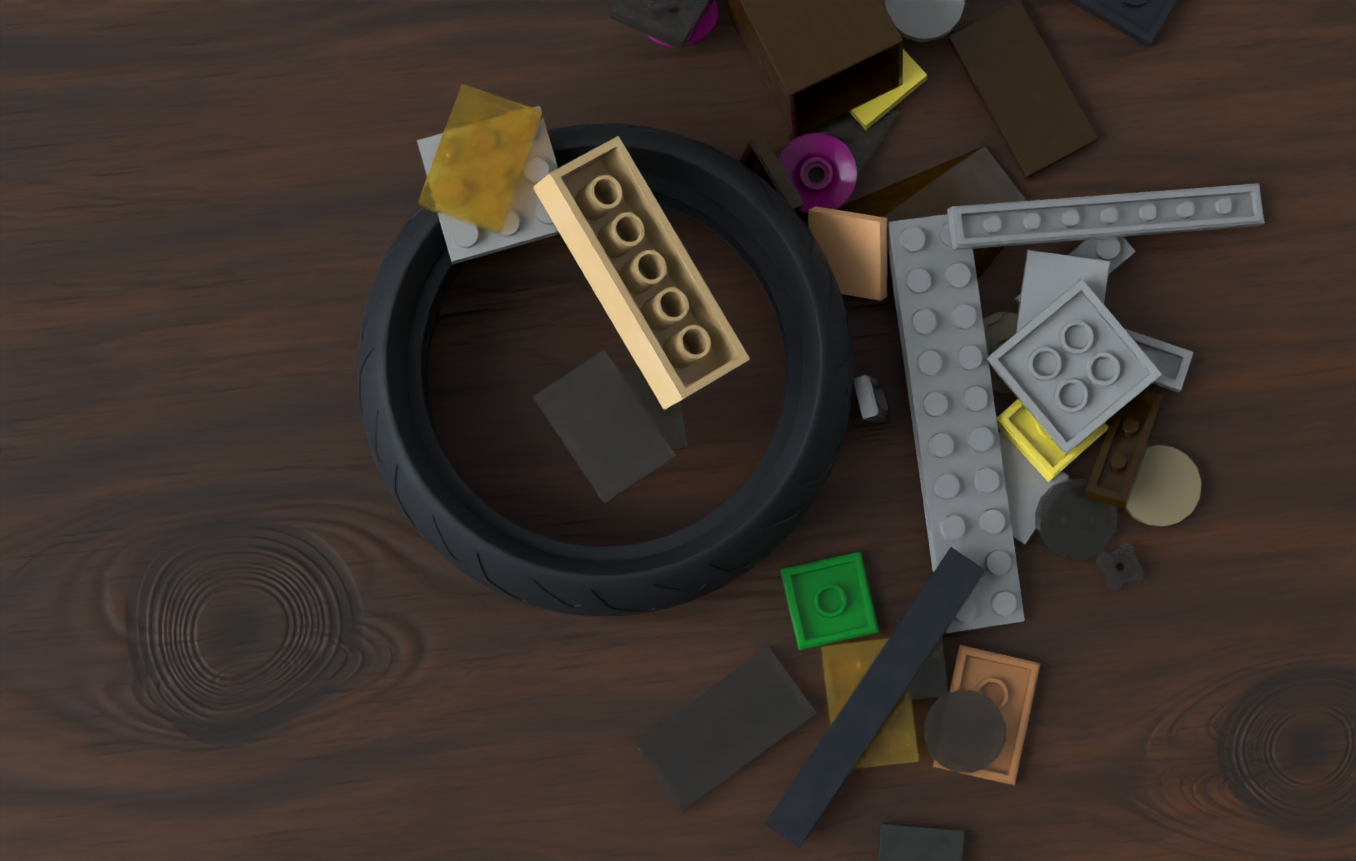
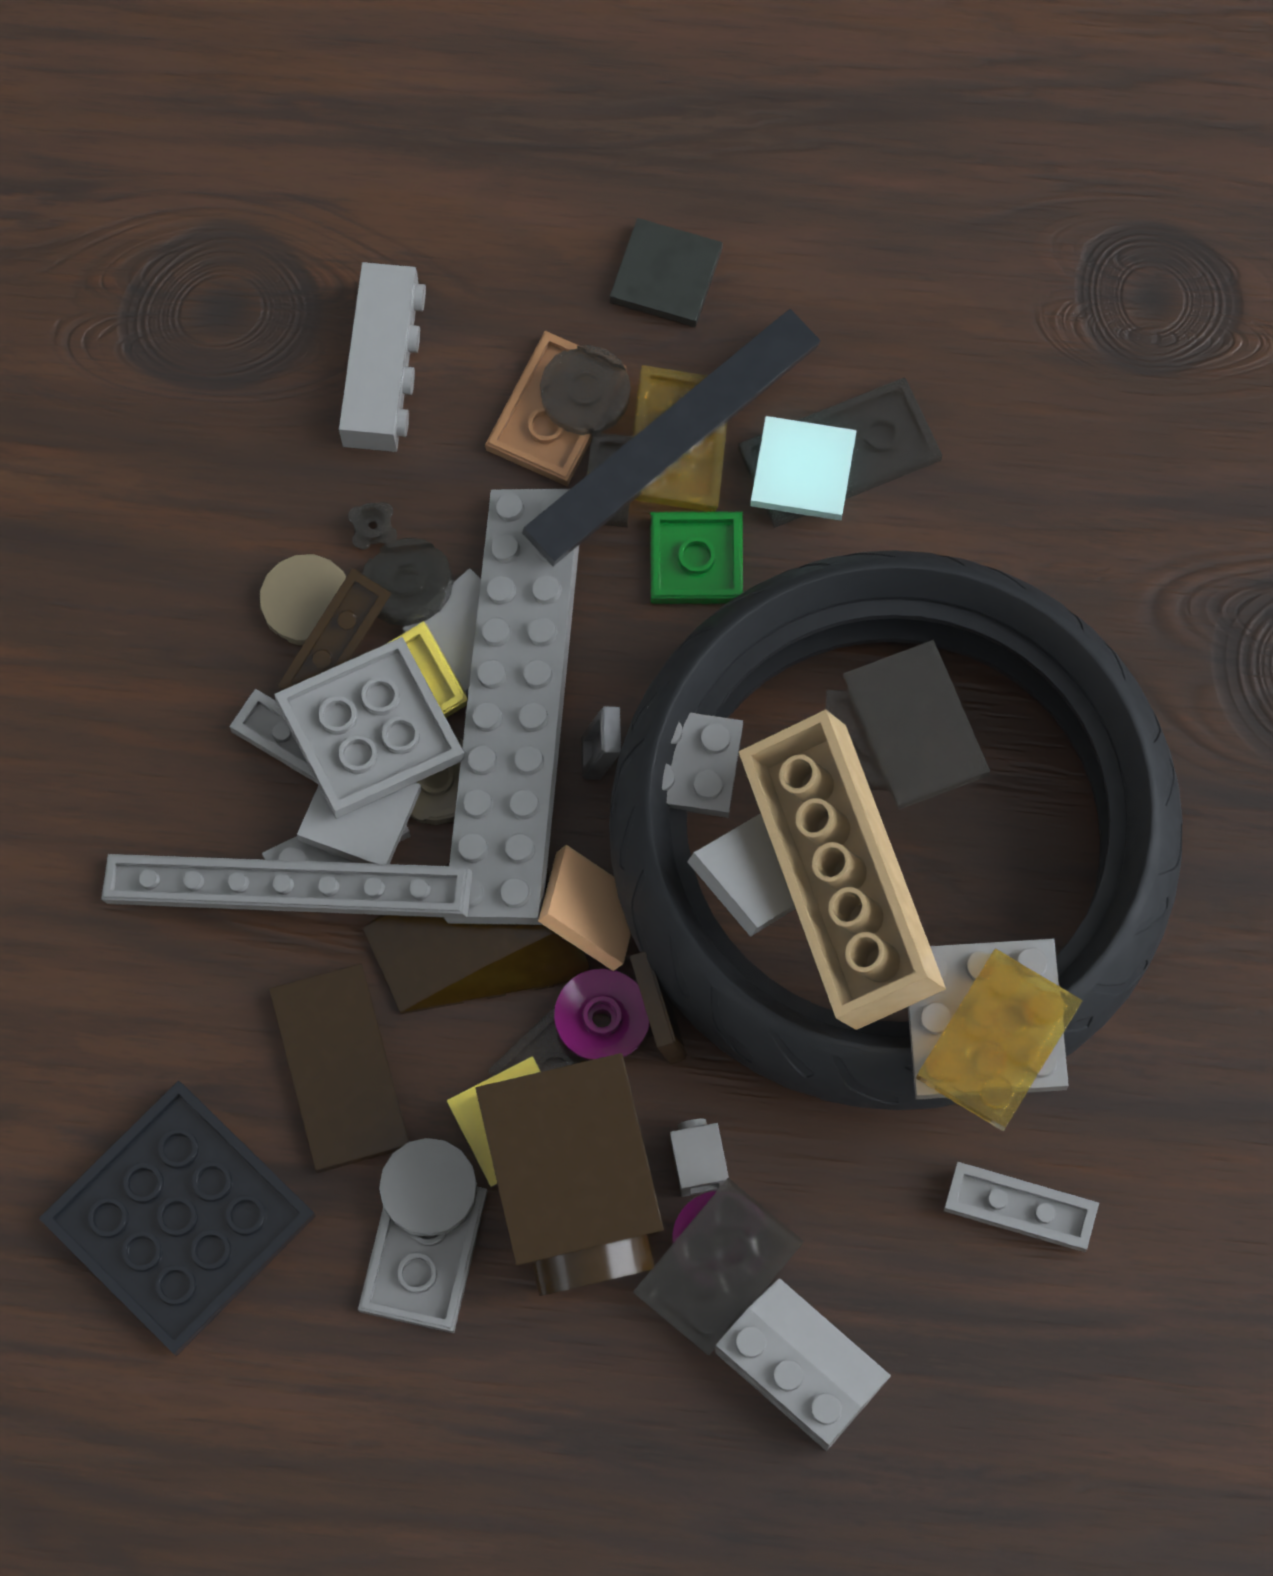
camera: 165 degrees left, 10 degrees down
(427, 91) = (1021, 1207): none -> light grey plate
(710, 74) = (698, 1157): none -> light grey brick
(723, 257) = (745, 875): none -> light grey tile
(753, 698) = (803, 468): none -> light aqua tile
(778, 368) = (703, 765): none -> light grey plate
(1154, 724) = (380, 357): none -> light grey brick

